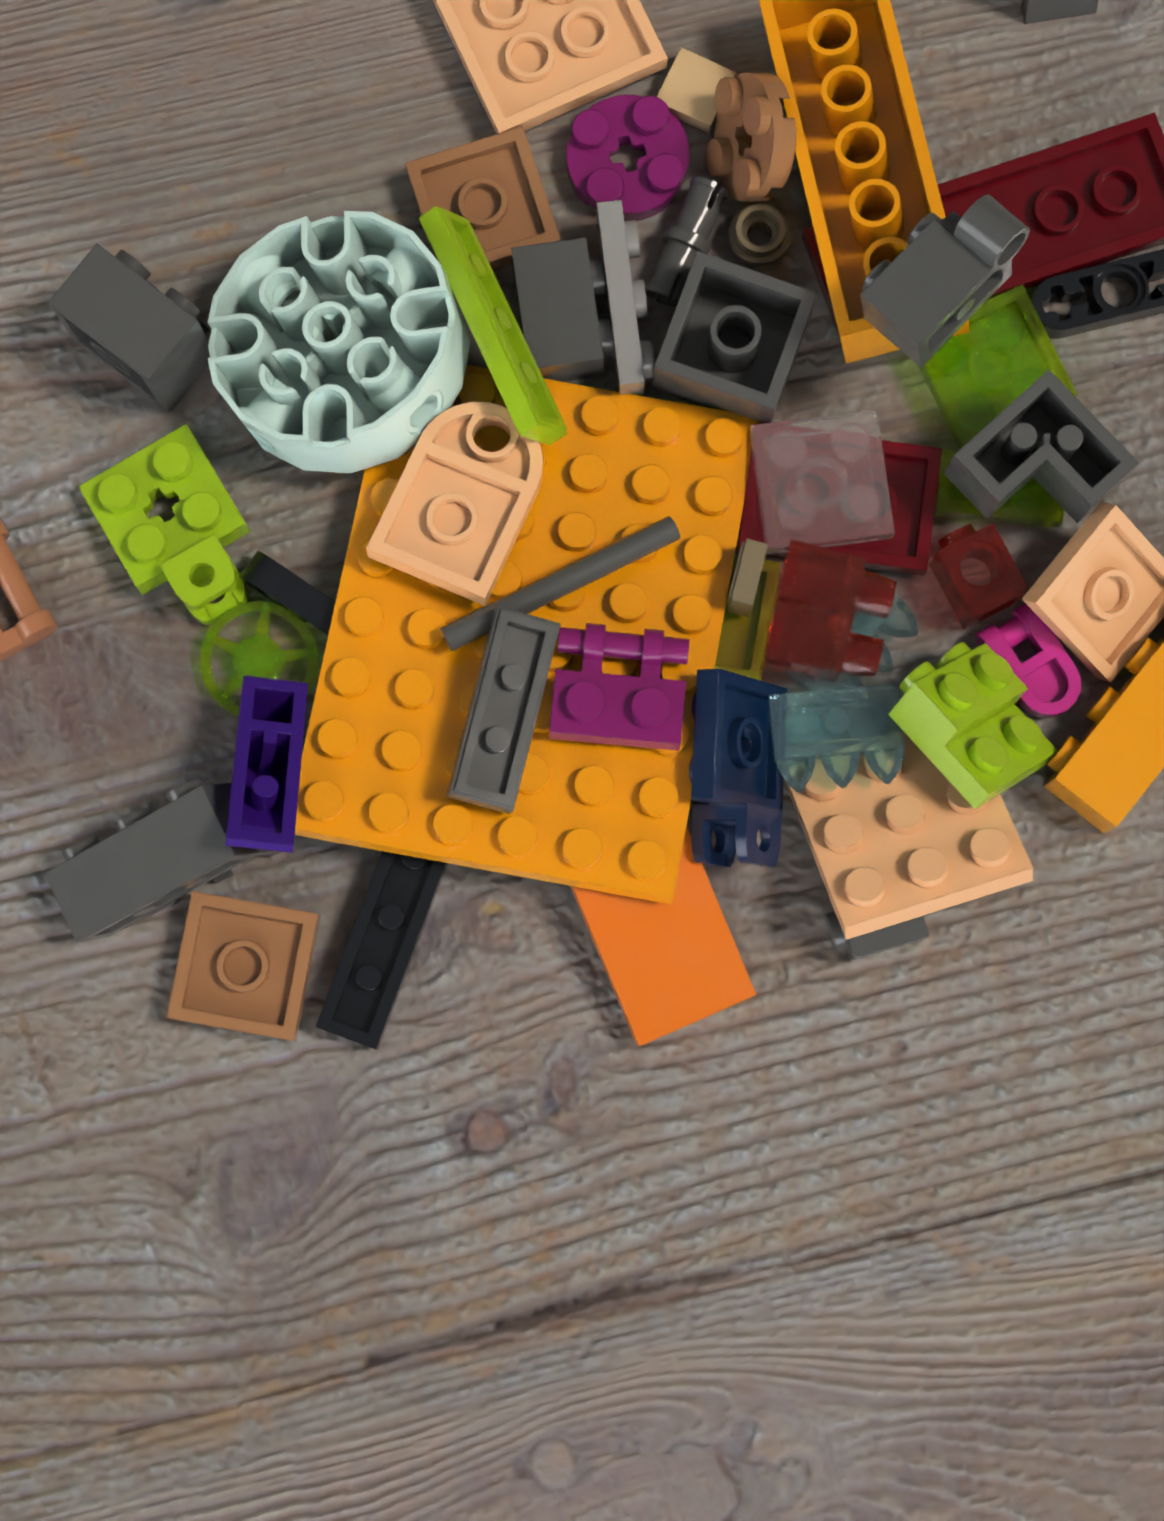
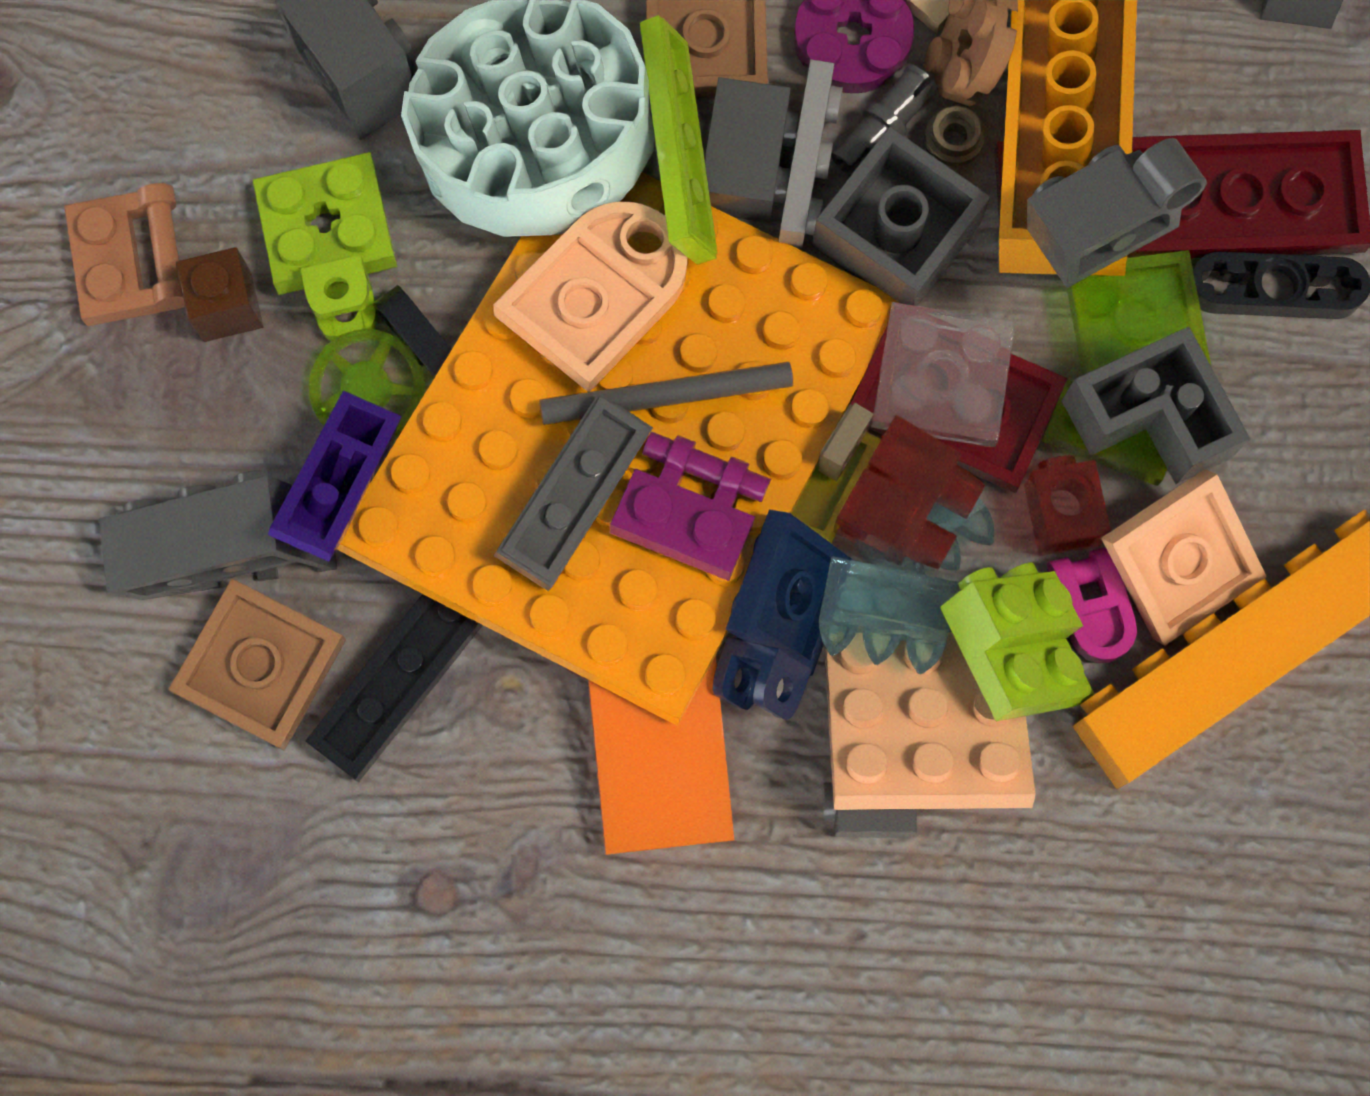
camera: 15 degrees right, 5 degrees down
(85, 613) = (219, 294): none -> reddish brown brick

